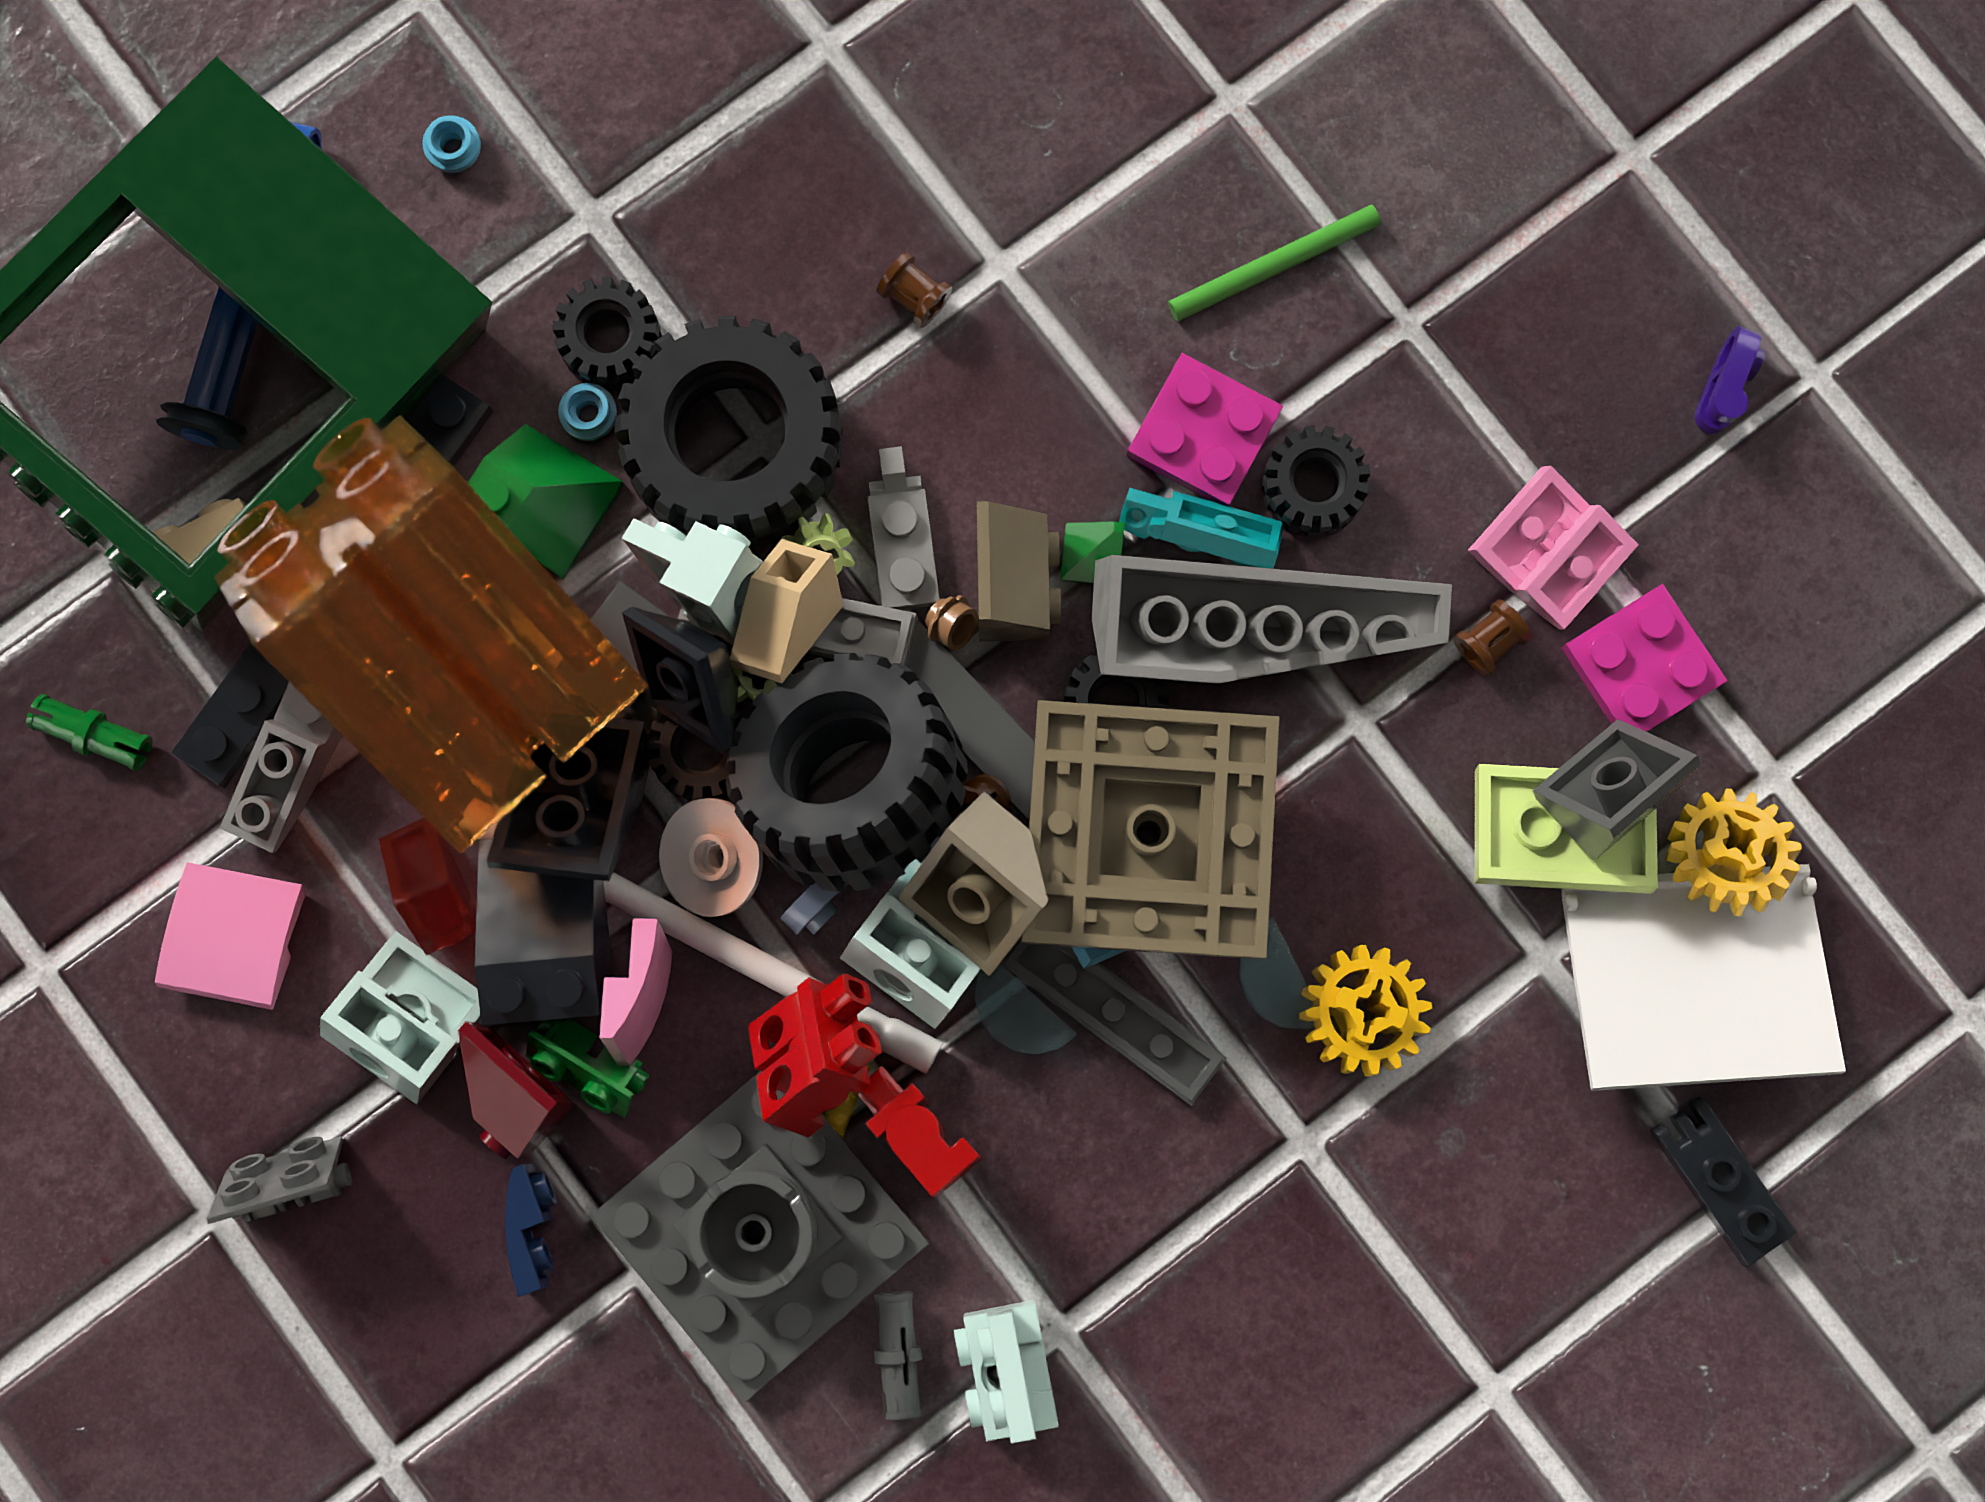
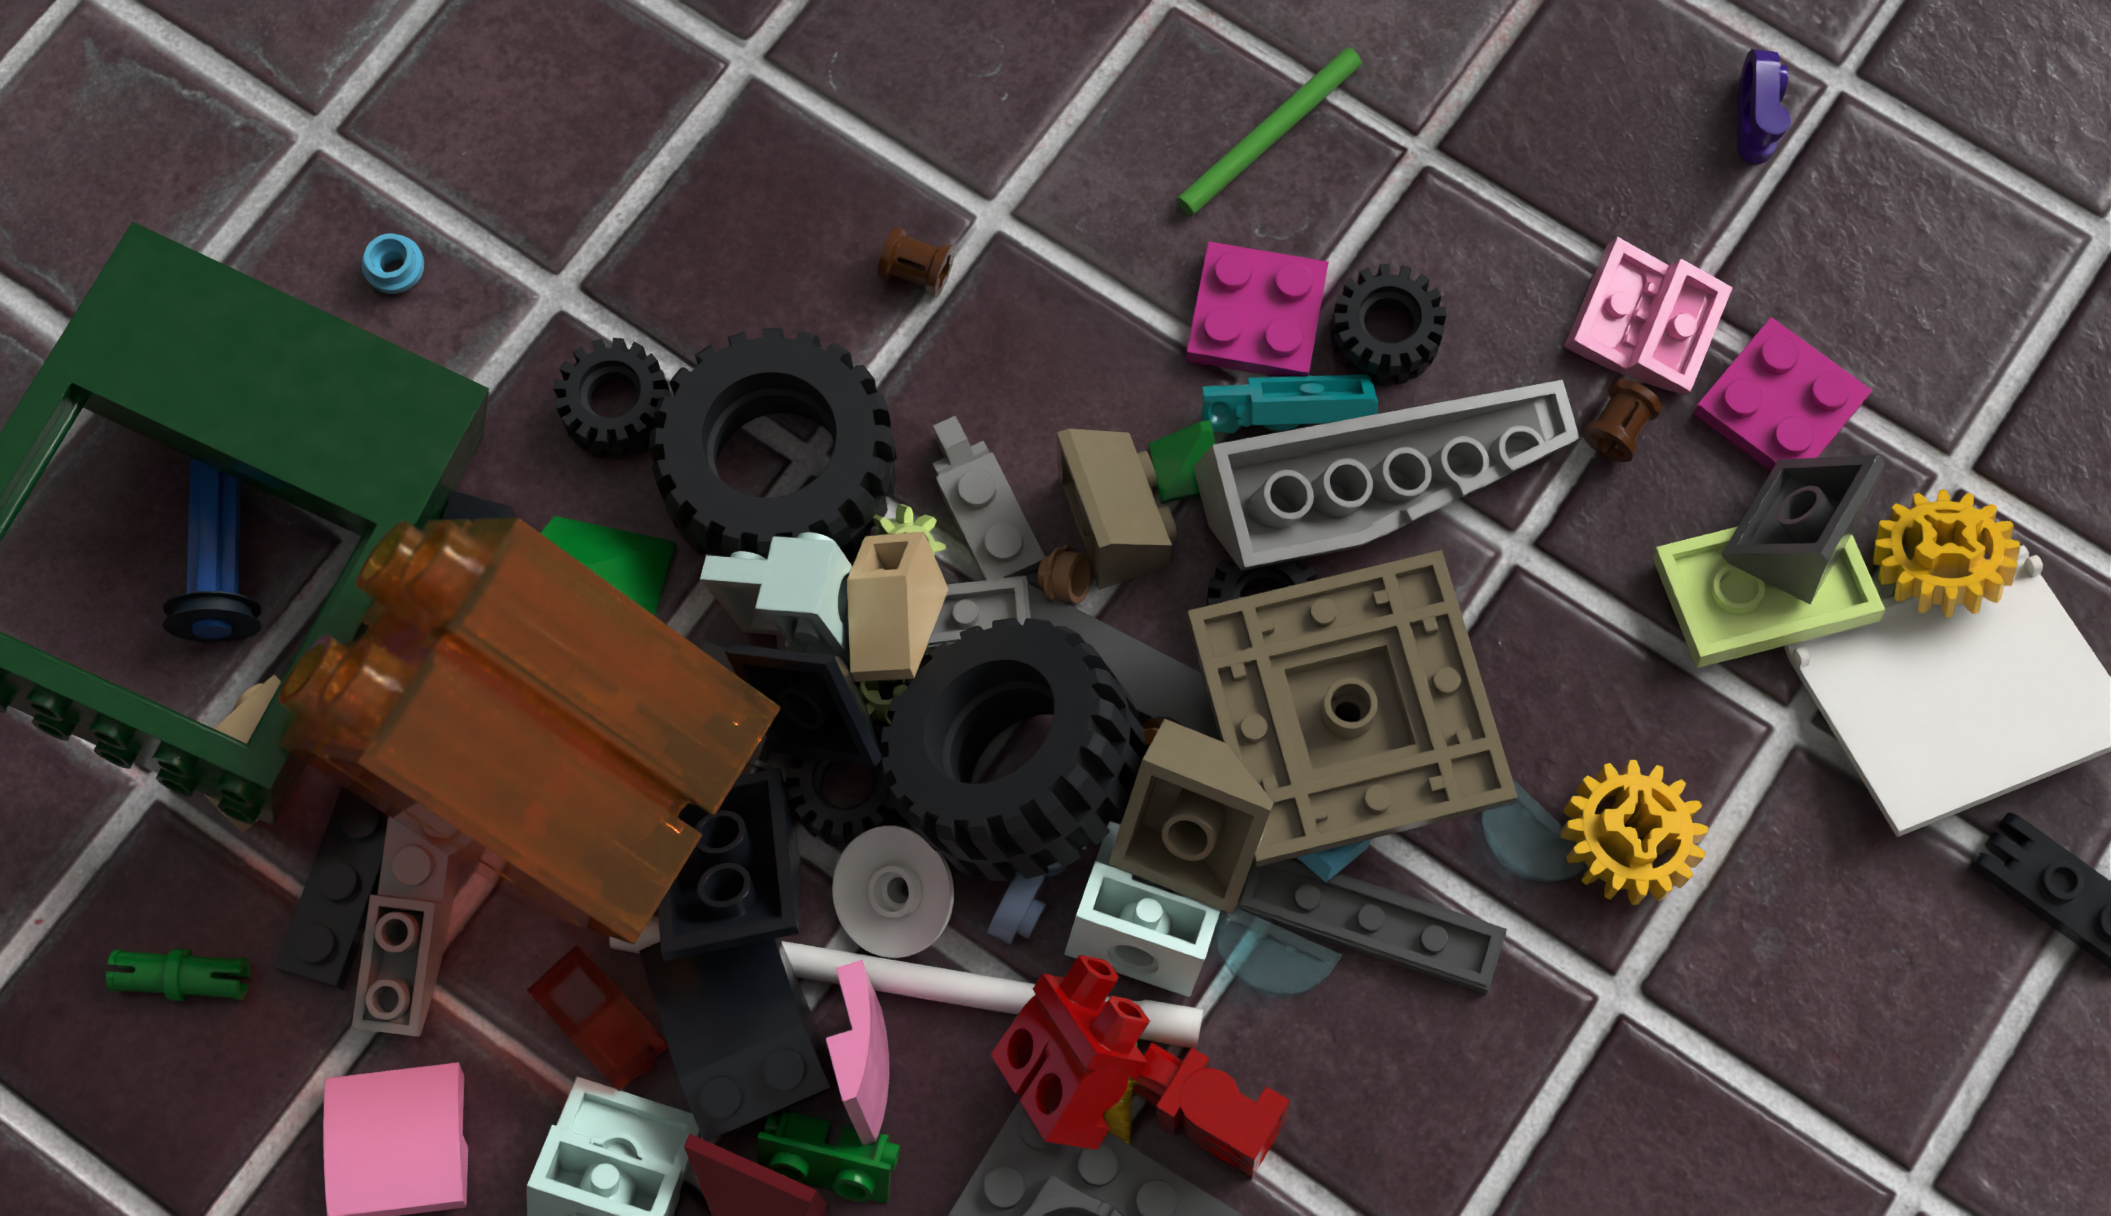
camera: 15 degrees left, 10 degrees down
(579, 397) = (611, 467): medium azure plate -> none

